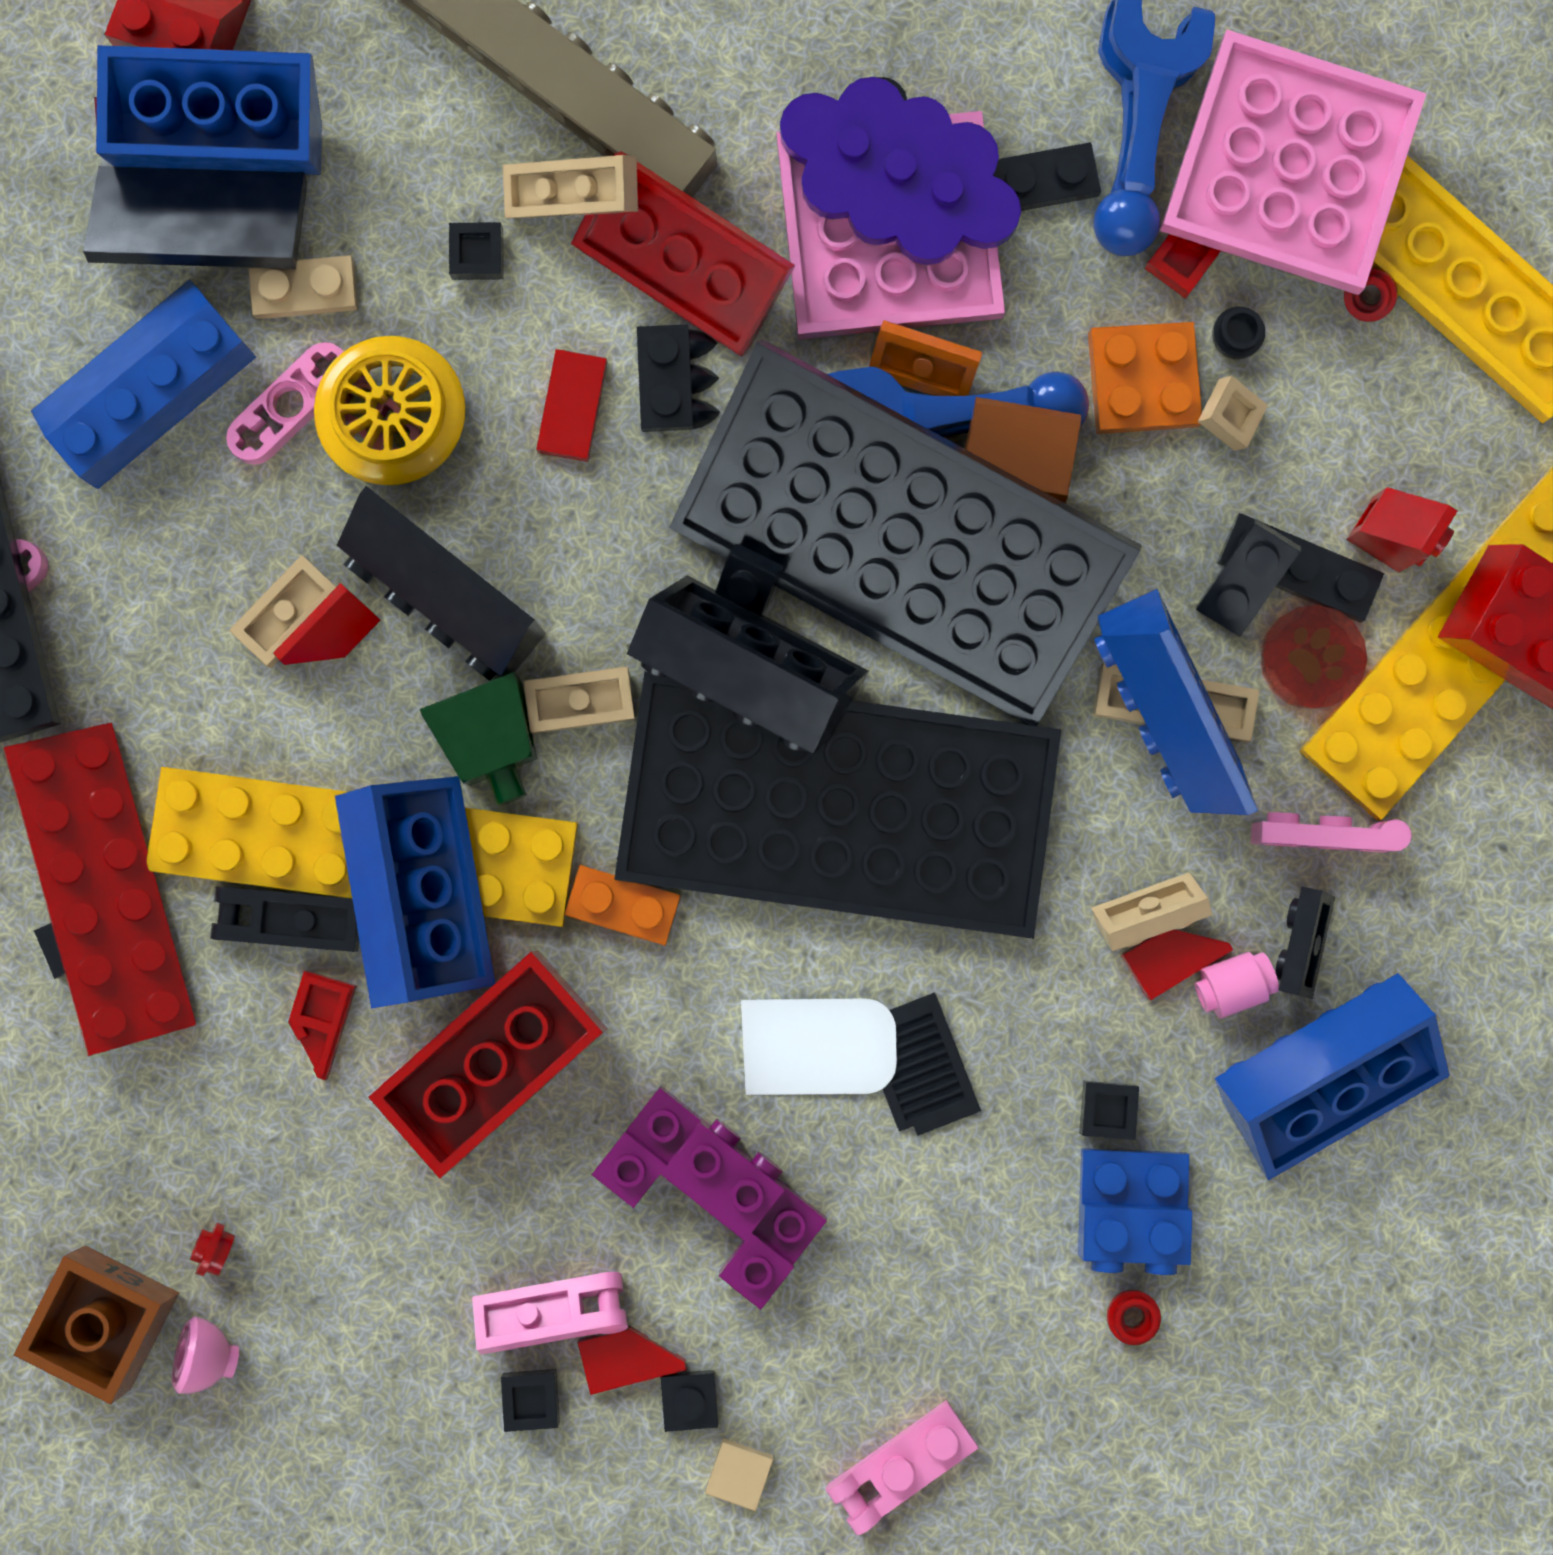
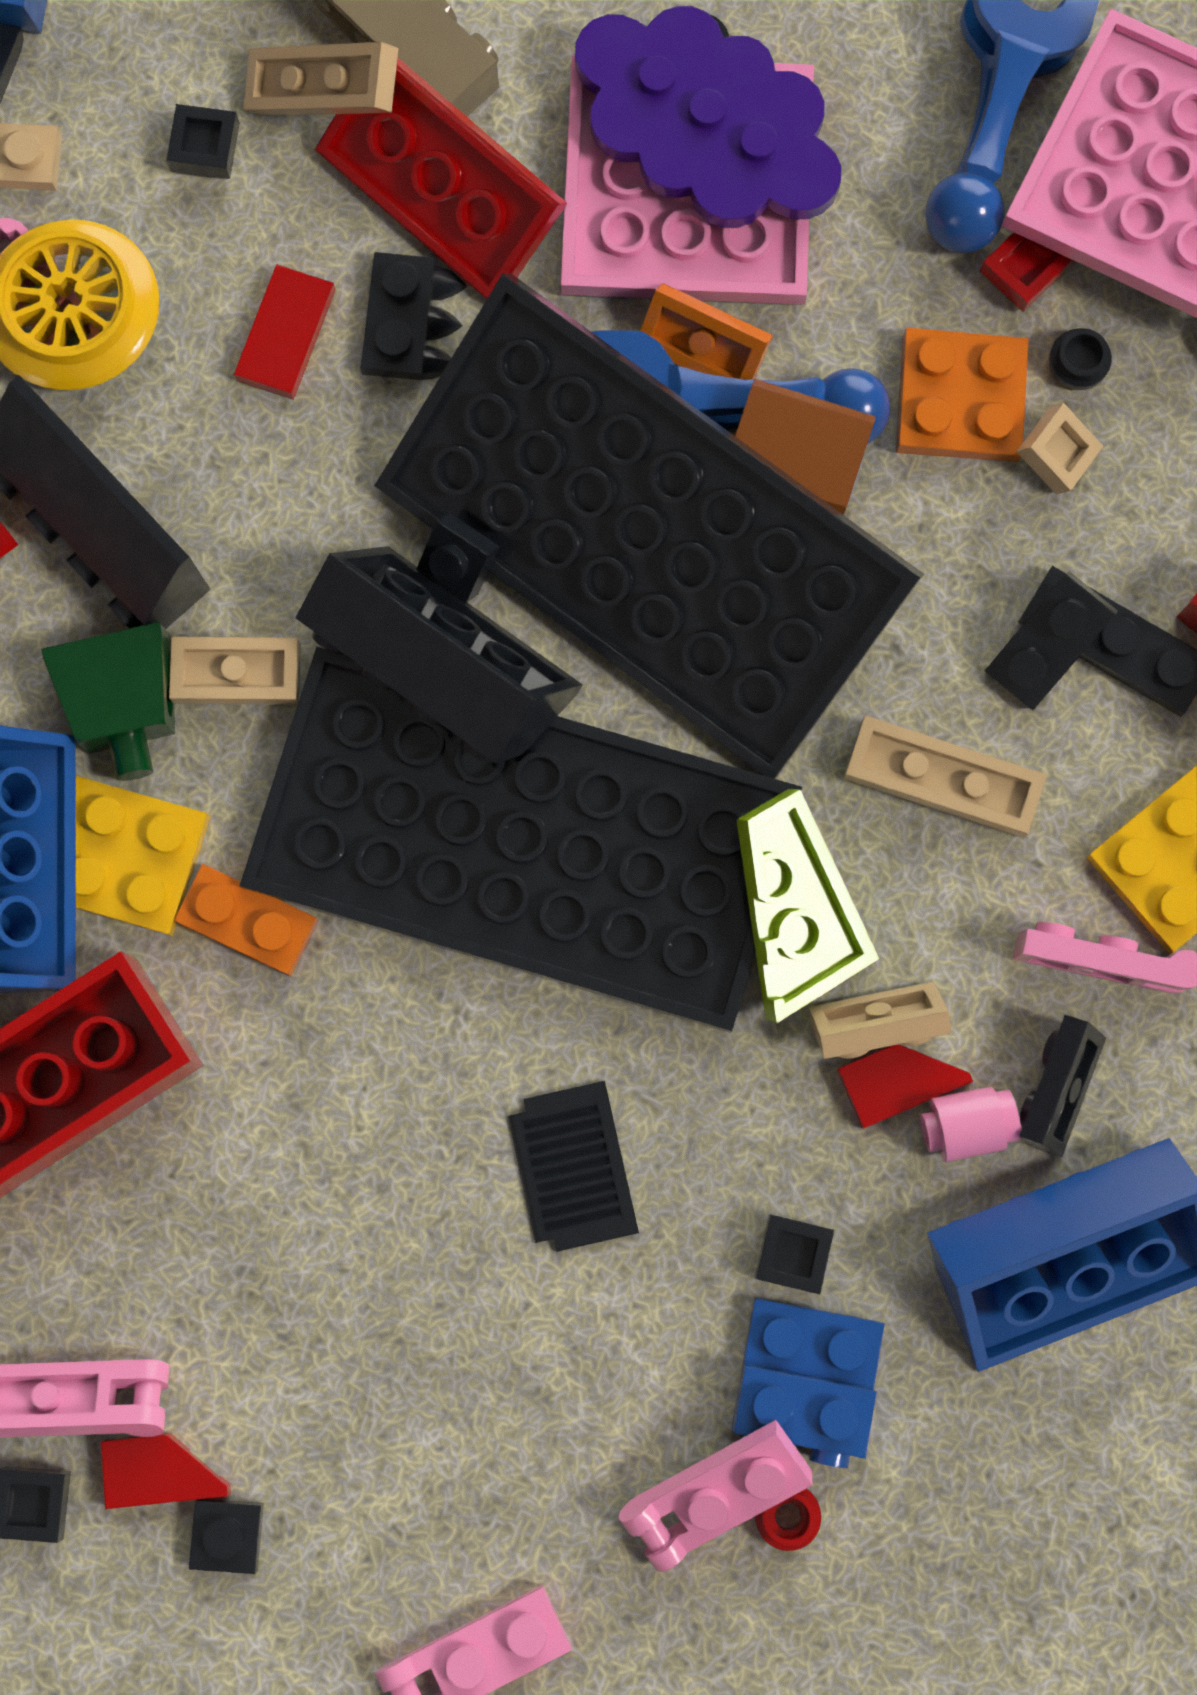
camera: 10 degrees right, 5 degrees down
(722, 1180) = (310, 1269): magenta bracket -> none
(739, 1474) = (271, 1638): tan tile -> none
(817, 1046) = (453, 1124): white sticker -> none
(1051, 176) = (885, 151): black plate -> none
(1074, 831) = (798, 907): none -> wing
(1076, 1311) = (716, 1494): none -> bright pink plate
(1174, 706) = (938, 772): blue slope -> none
(1313, 657) = (1118, 748): clear red tile -> none

